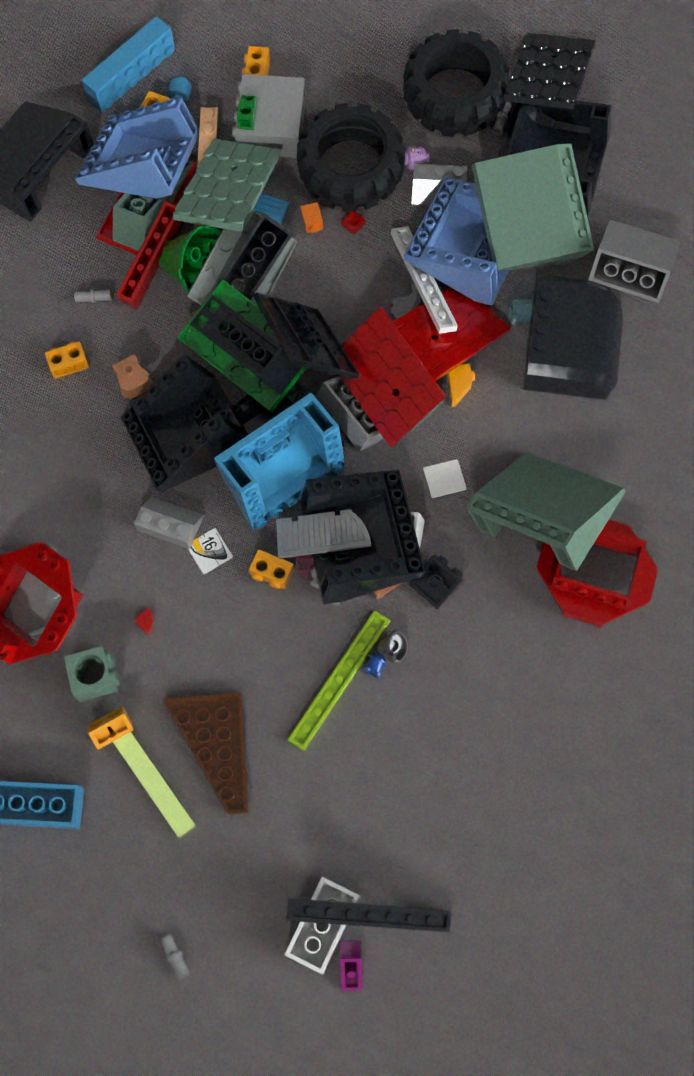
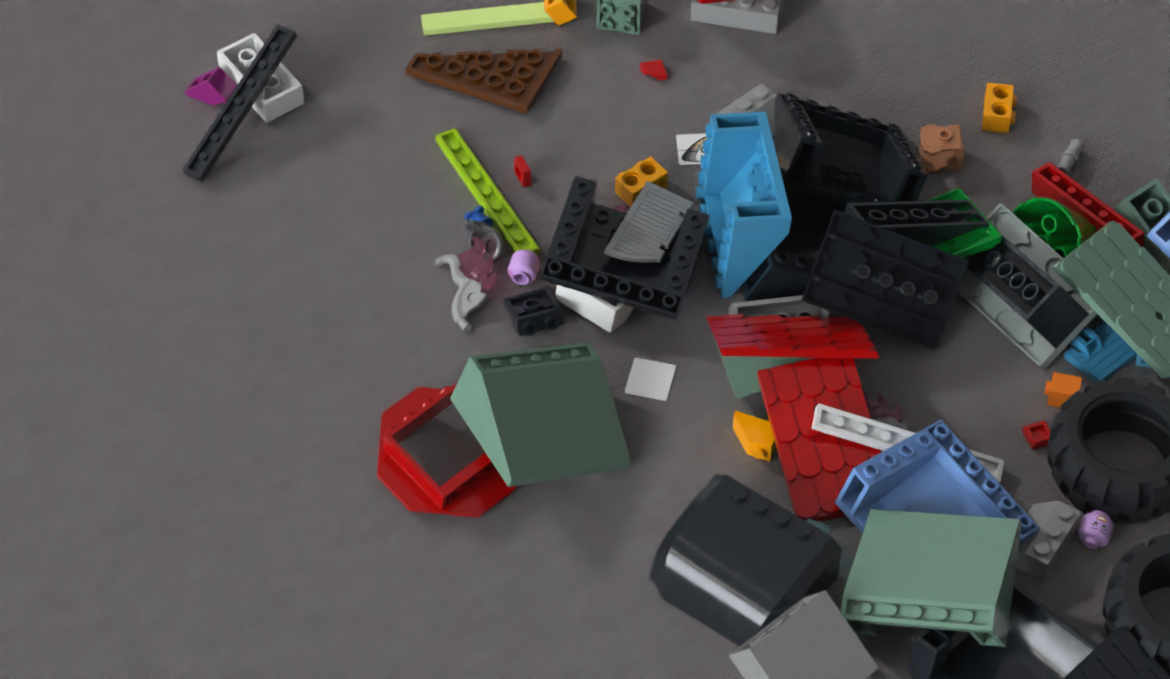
camera: 115 degrees right, 20 degrees down
(307, 661) = (522, 171): none -> red tile
(400, 609) = (524, 267): none -> lavender head
(431, 640) = (472, 278): none -> piece

